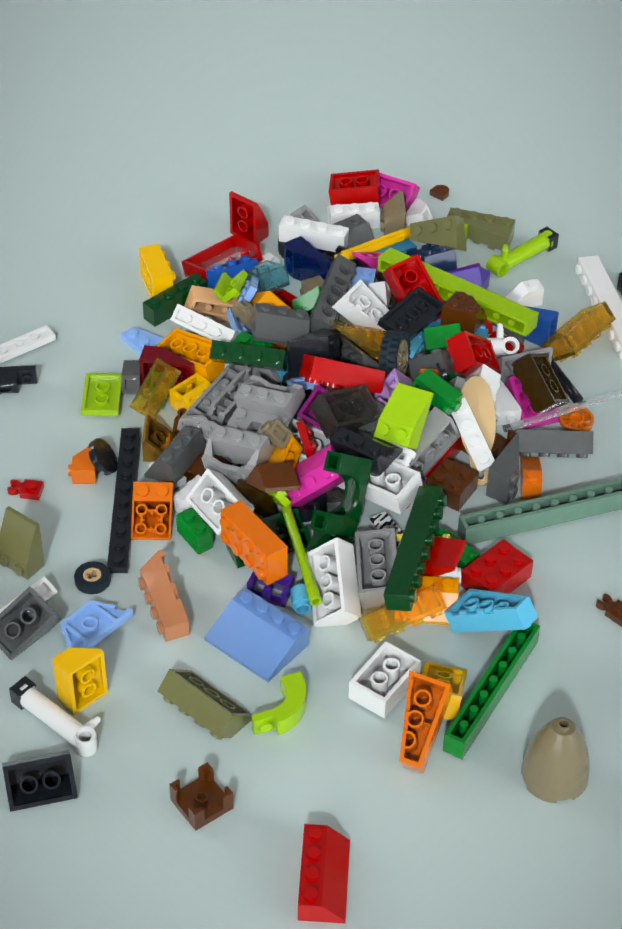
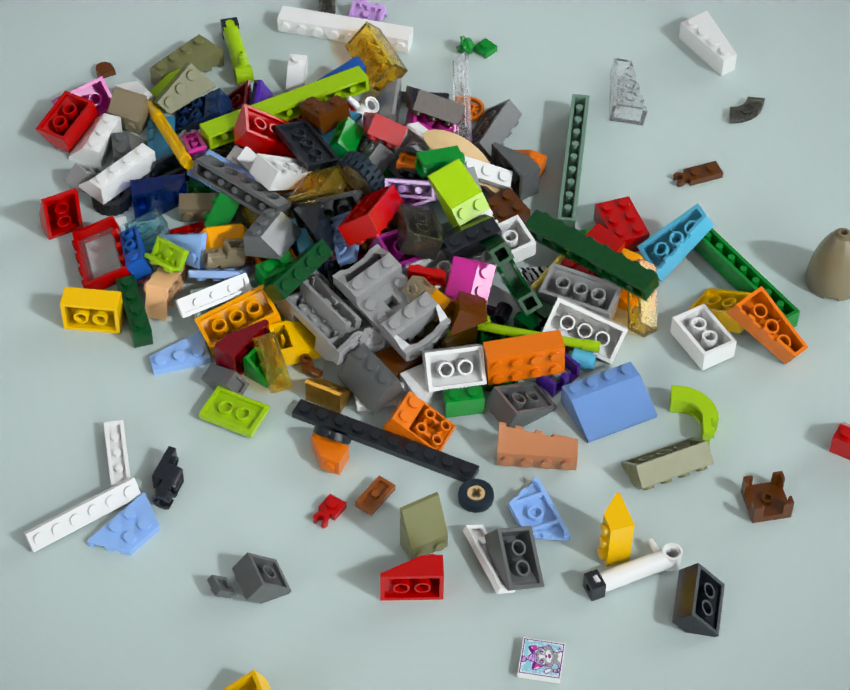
camera: 65 degrees left, 5 degrees up
(55, 510) = (375, 495): none -> dark orange plate
(216, 571) = (519, 403): none -> dark grey slope

